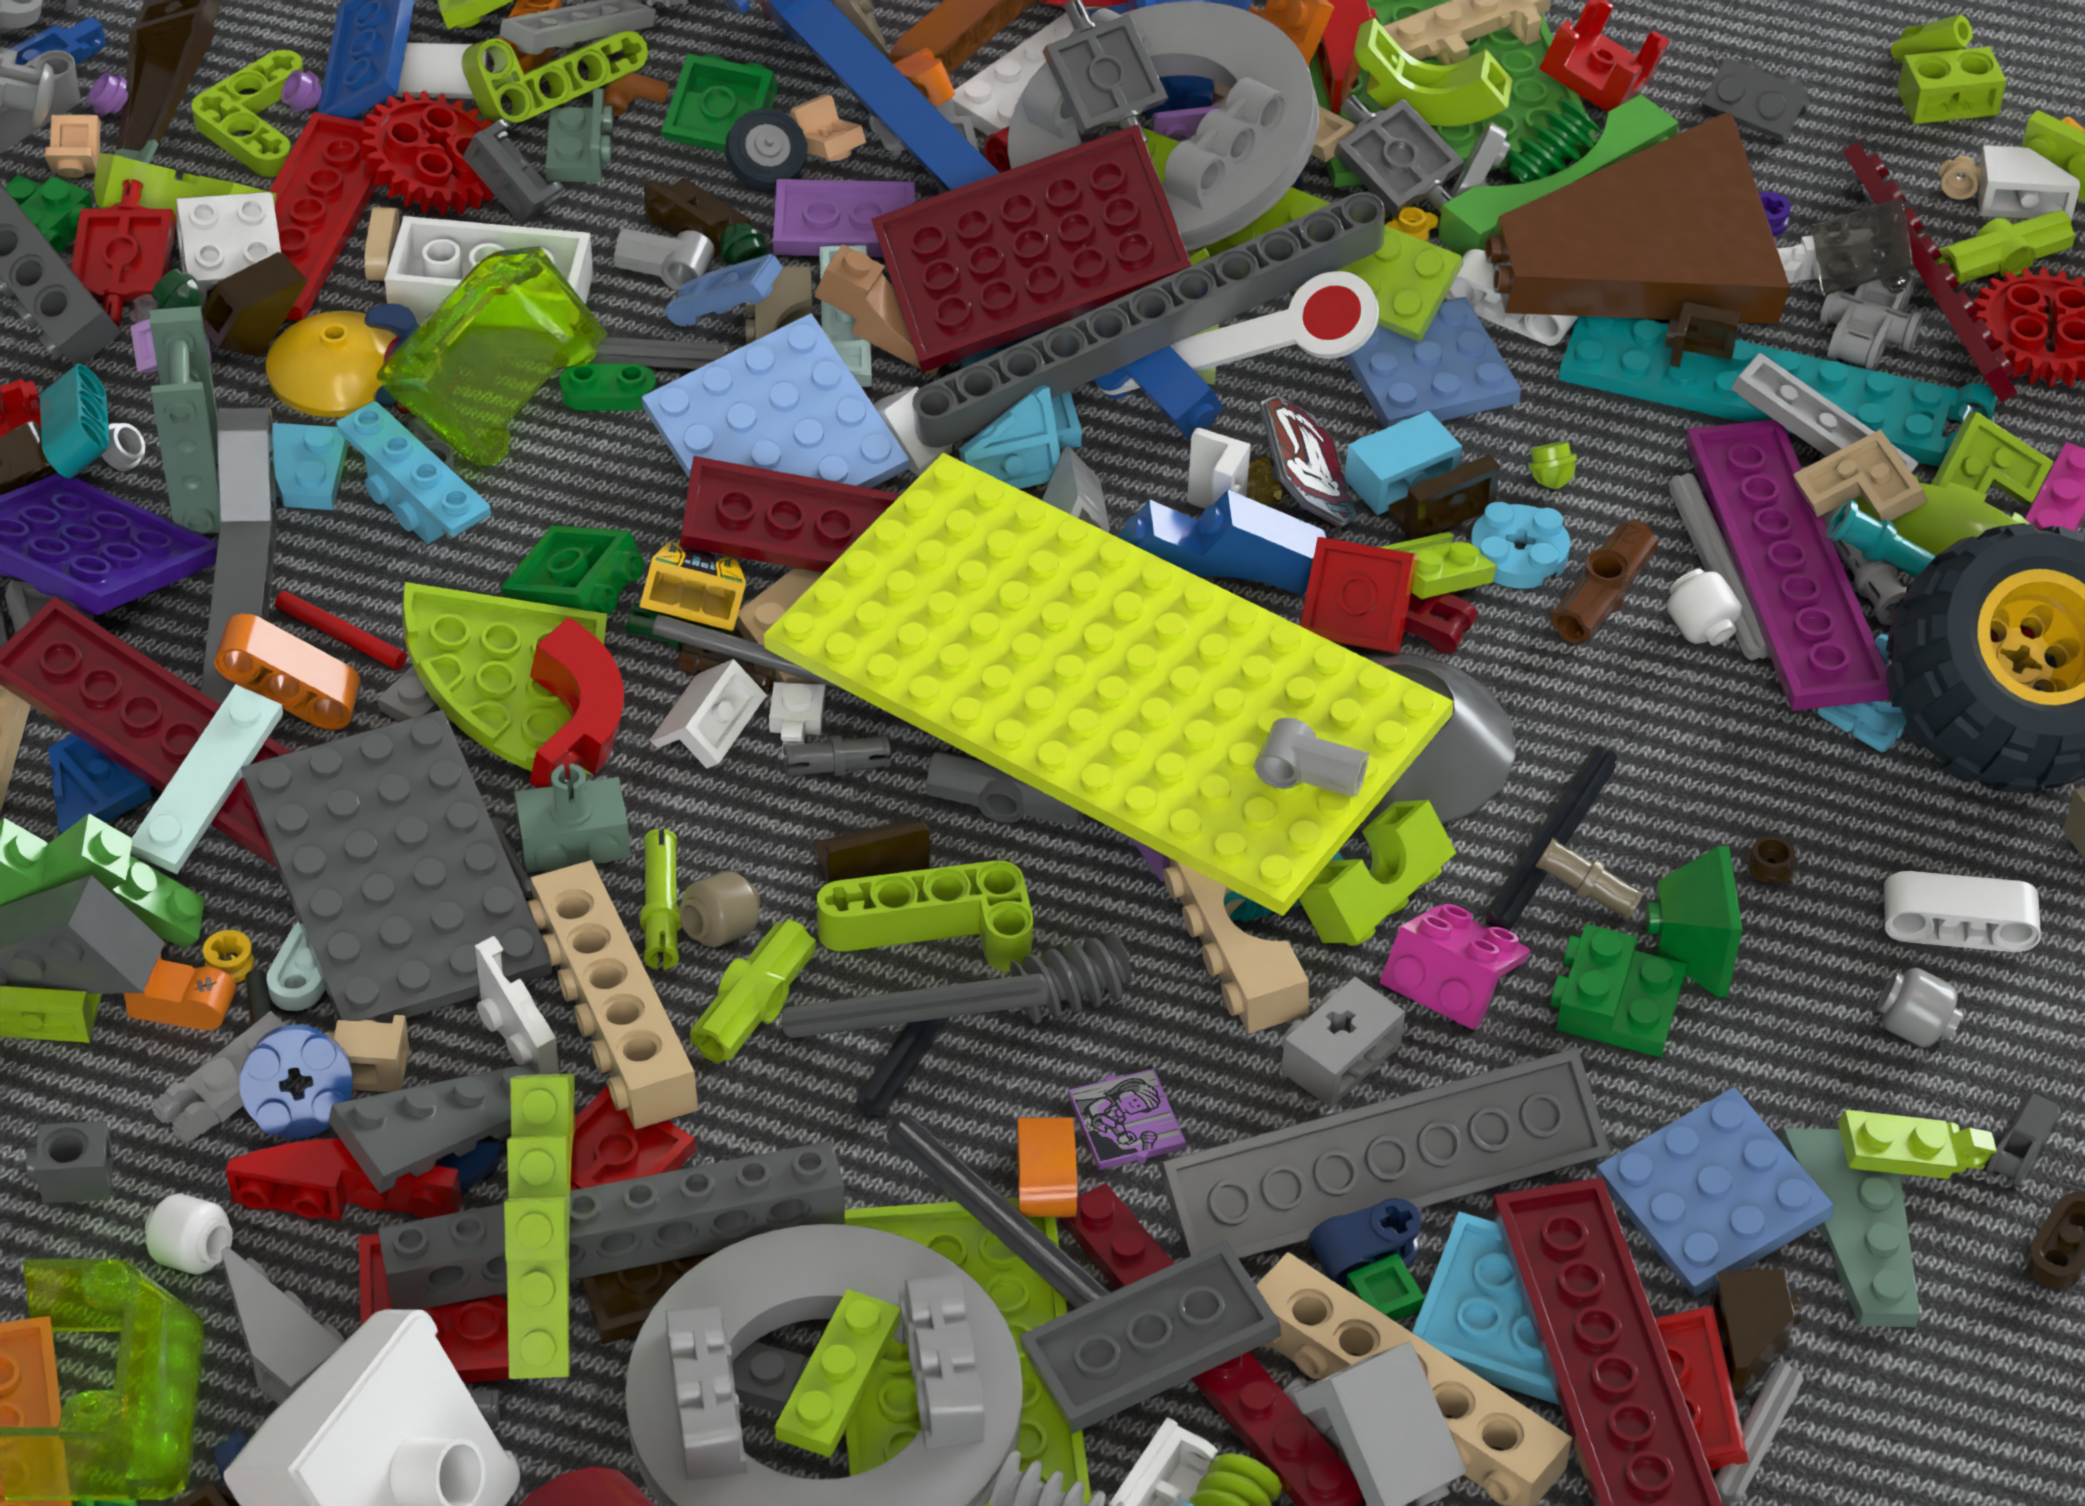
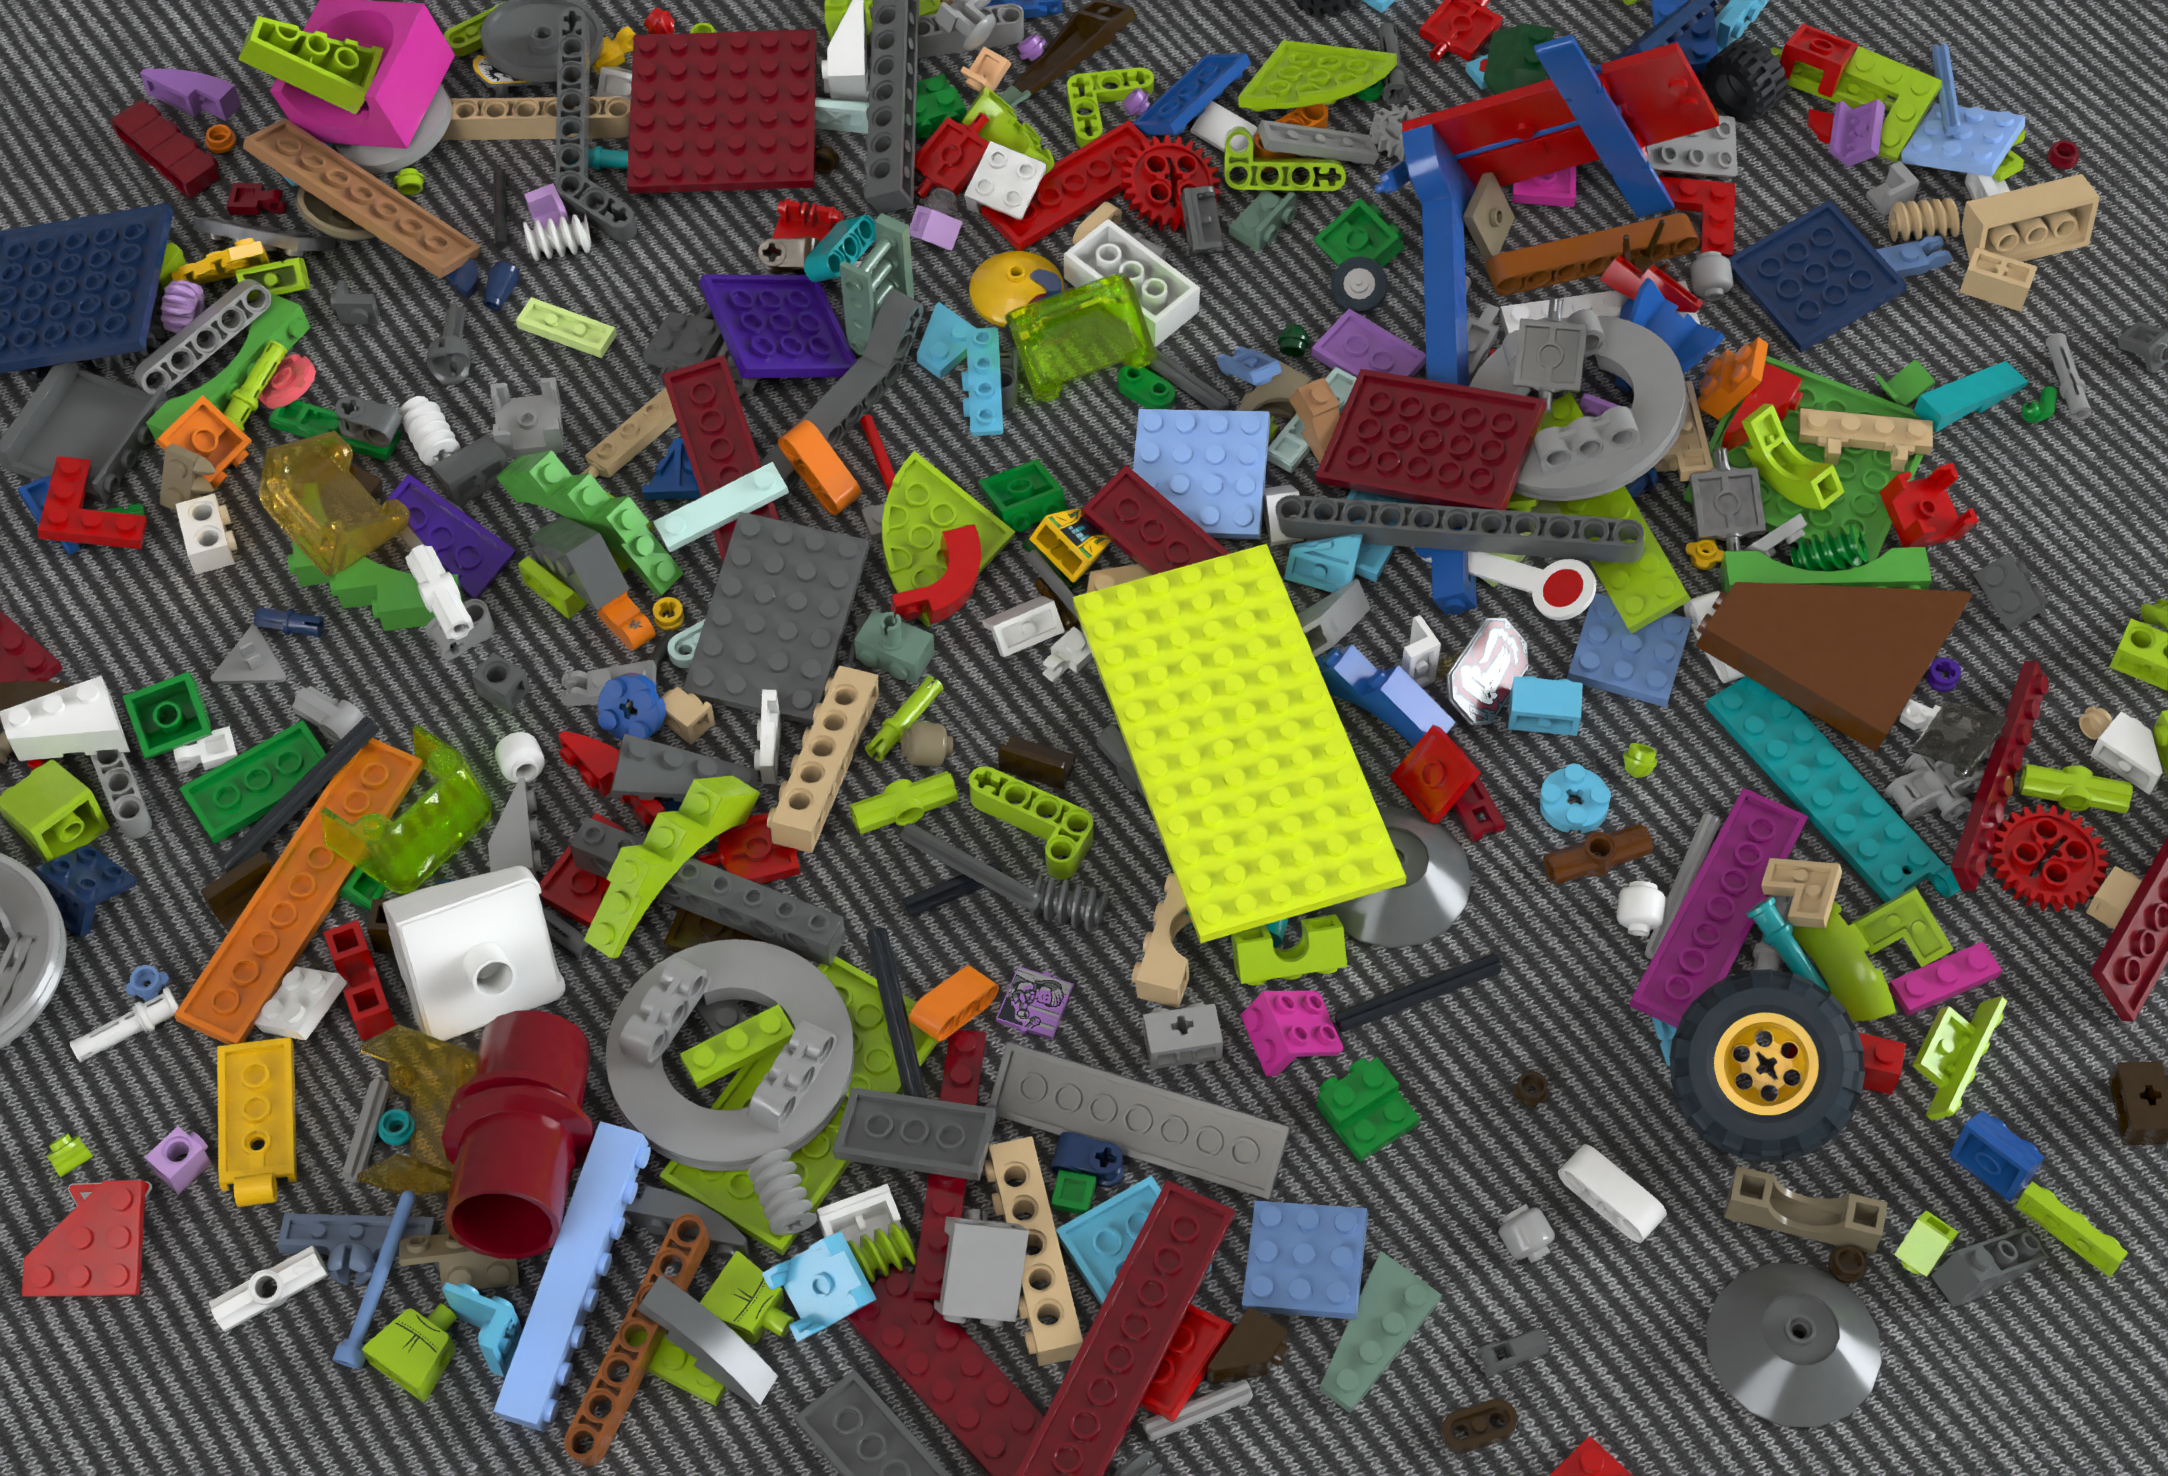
camera: 40 degrees right, 10 degrees up
(176, 291) = (951, 200): dark green plate -> none
(252, 305) = (986, 229): dark brown slope -> none
(631, 87) = (1320, 200): dark orange arm -> none
(671, 258) = (1247, 327): light grey piece -> none
(689, 208) = (1286, 303): dark brown bracket -> none
(824, 131) = (1407, 290): light nougat bracket -> none
(836, 756) = (1067, 692): dark grey pin -> none
(927, 76) = (1483, 289): orange leg -> none
(1295, 755) = (1276, 856): light grey piece -> none
(1446, 565) = (1506, 783): lime plate -> none
(1447, 498) = (1550, 746): dark brown bracket -> none
(1590, 879) = (1409, 1031): dark tan pin -> none
(1699, 919) = (1444, 1096): green slope -> none
(1703, 332) = (1804, 729): dark brown bracket -> none
(1802, 408) = (1826, 832): light grey plate -> none
(1912, 1145) = (1436, 1309): lime hinge -> none

